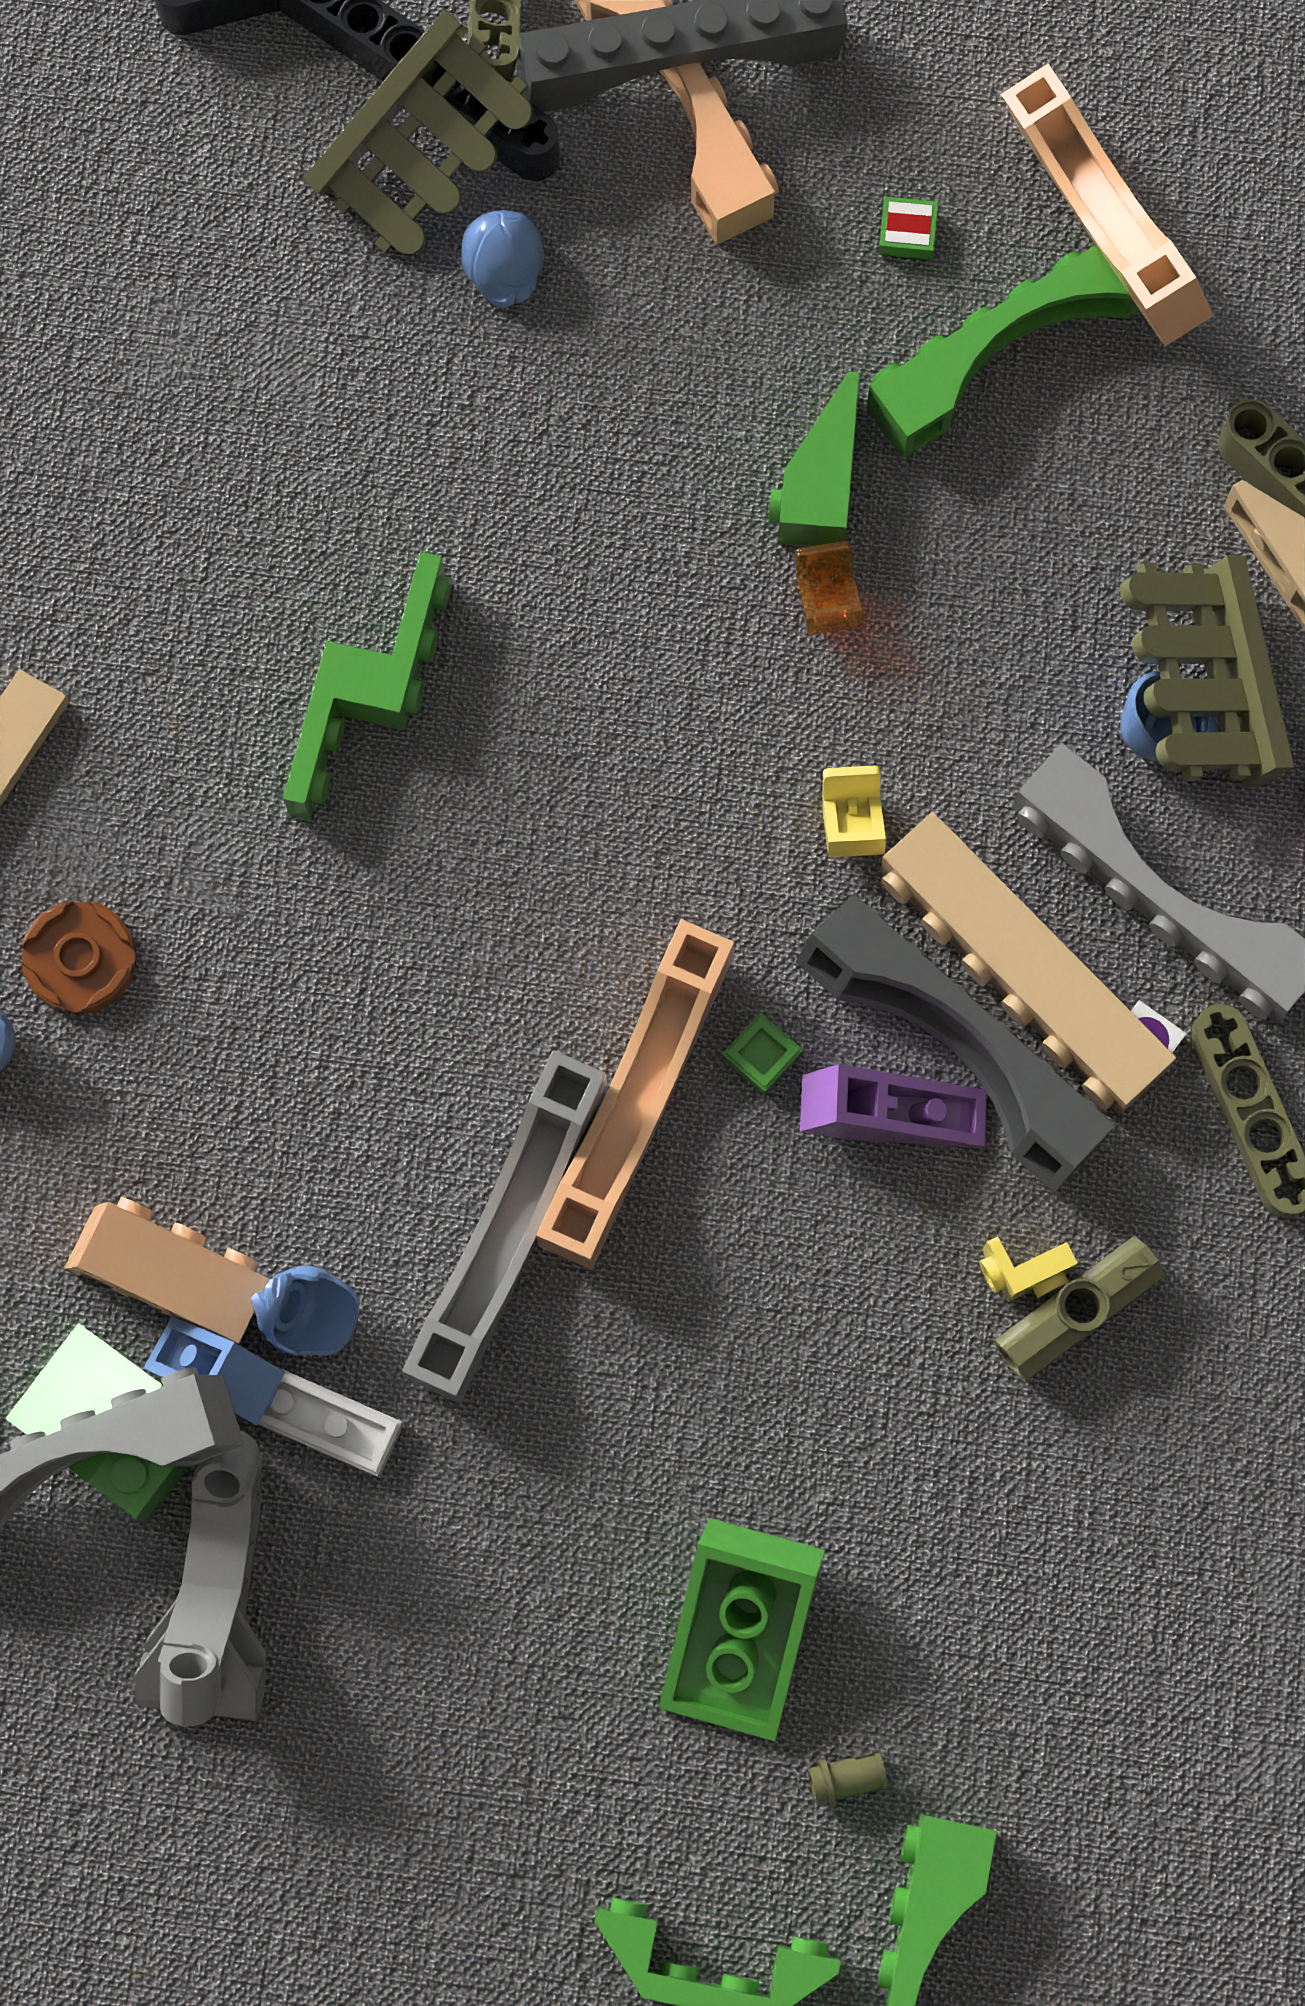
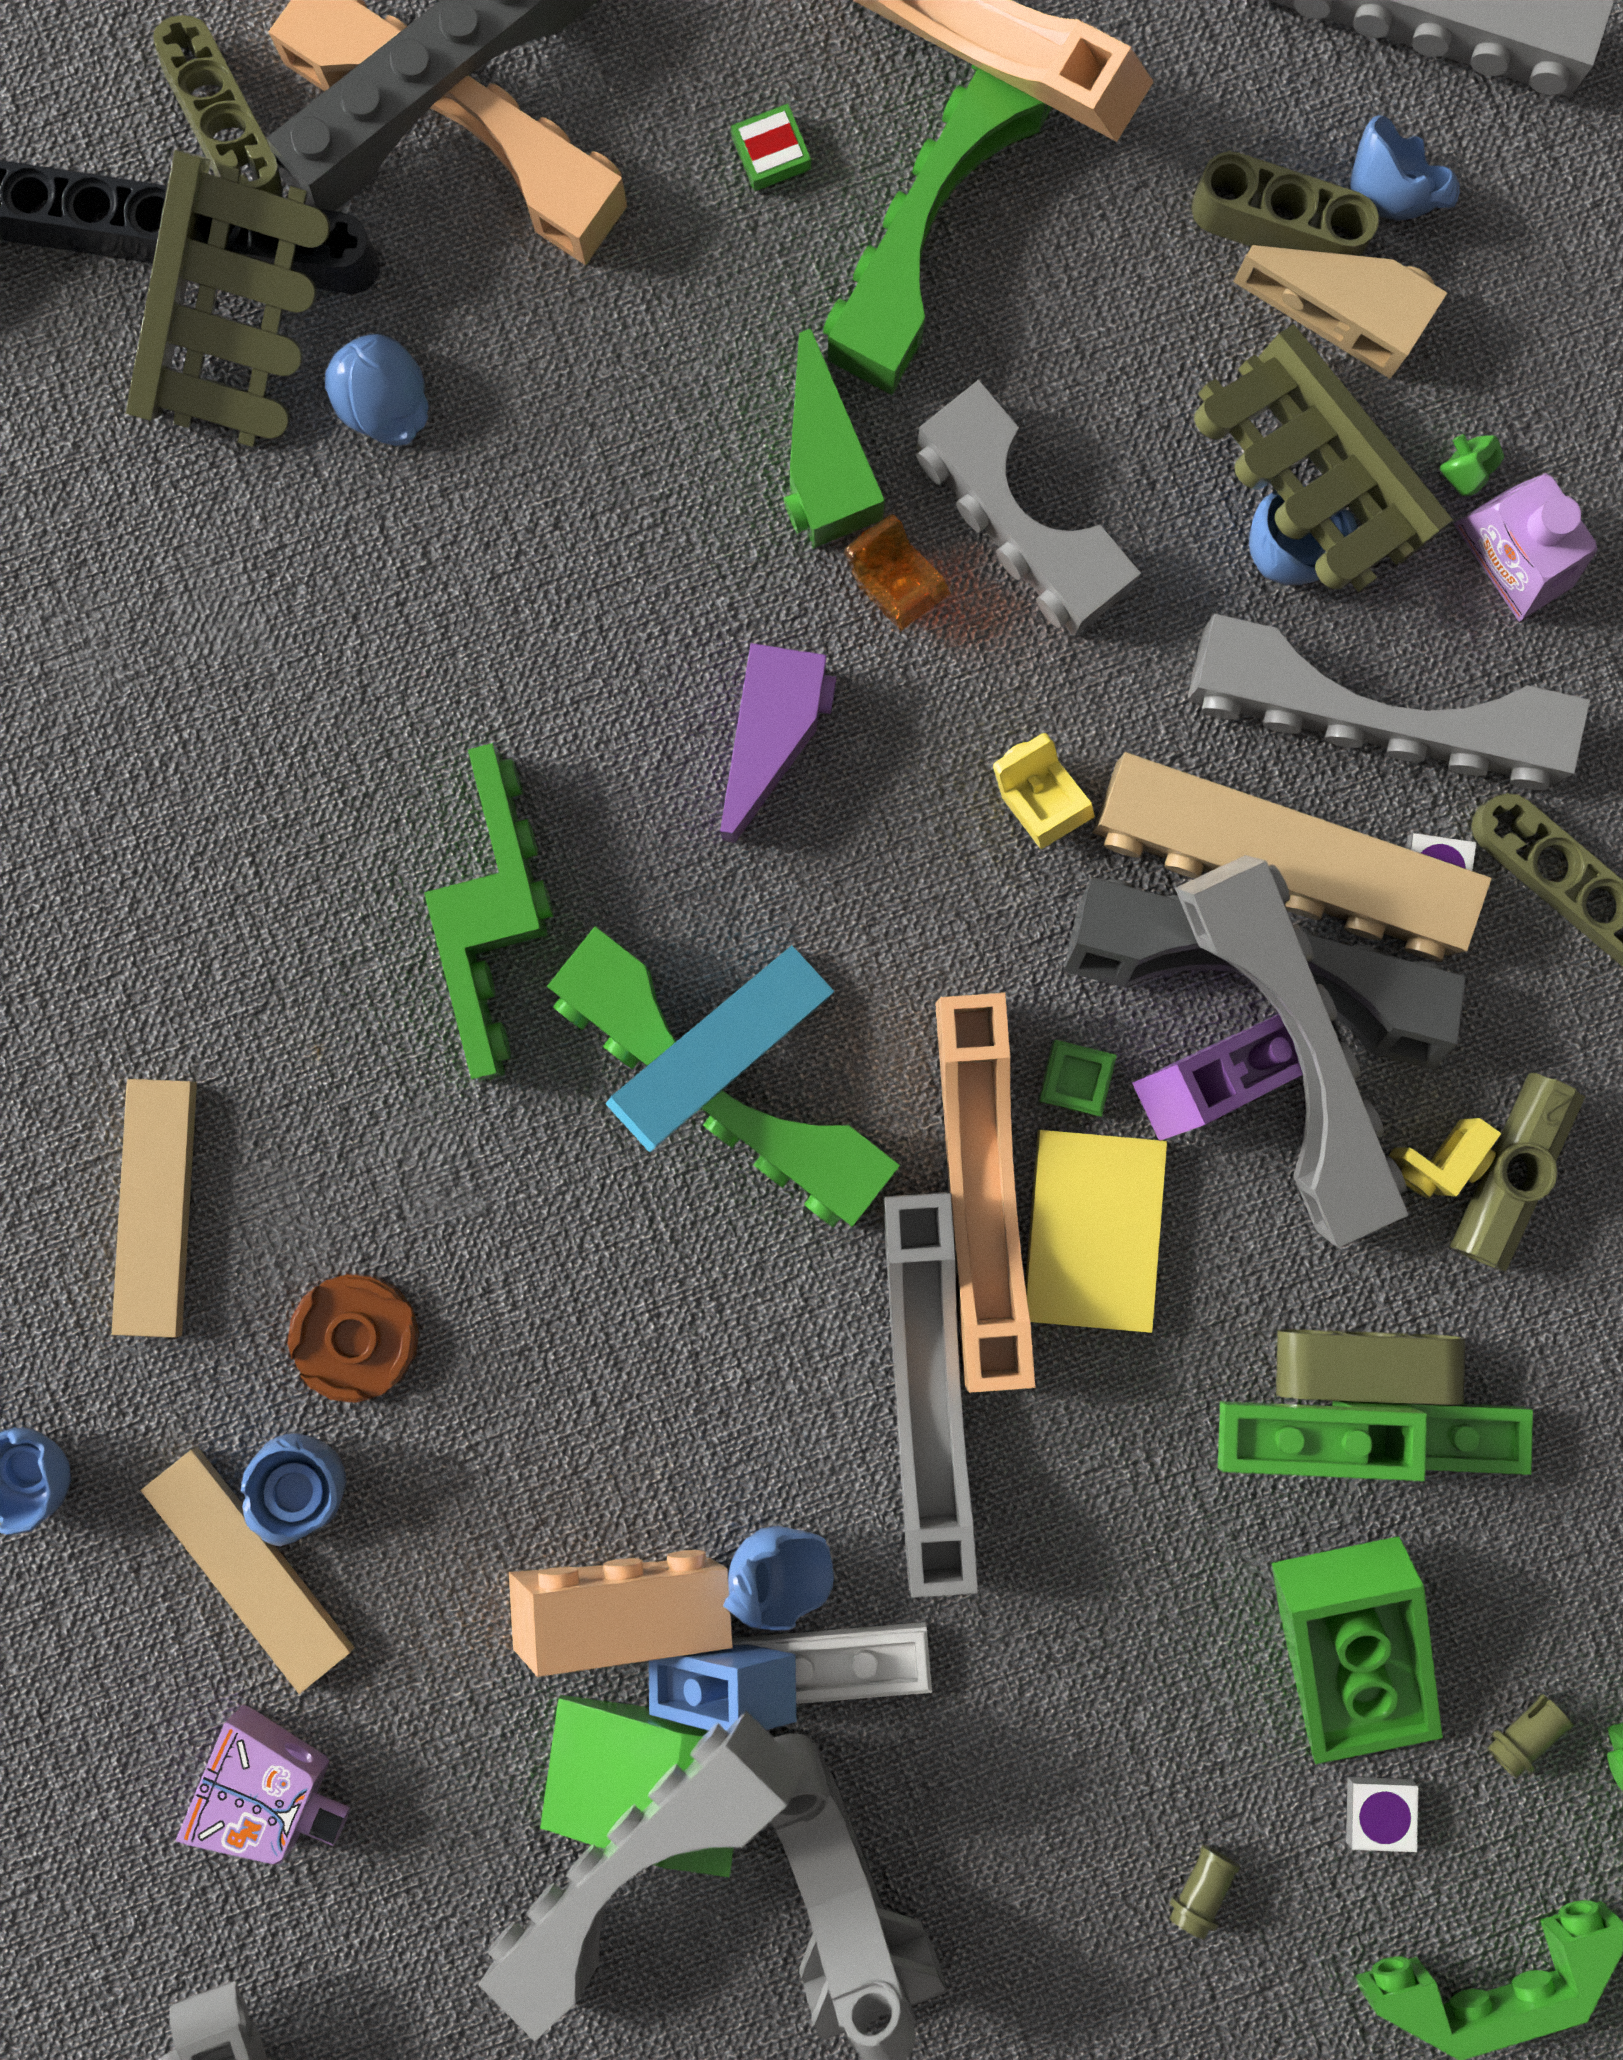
camera: 30 degrees left, 10 degrees up
(489, 873) = (719, 1048): none -> medium azure tile
(509, 1759) = (1204, 1893): none -> olive pin
(524, 1006) = (828, 1161): none -> bright green arch
(667, 658) = (774, 724): none -> medium lavender slope
(691, 1778) = (1382, 1814): none -> tile
(710, 1180) = (1095, 1230): none -> light yellow tile
(845, 1451) = (1374, 1439): none -> bright green bracket
(876, 1402) = (1370, 1366): none -> olive beam
(935, 1230) = (1341, 1164): none -> light grey arch
(971, 658) = (1072, 571): none -> light grey arch

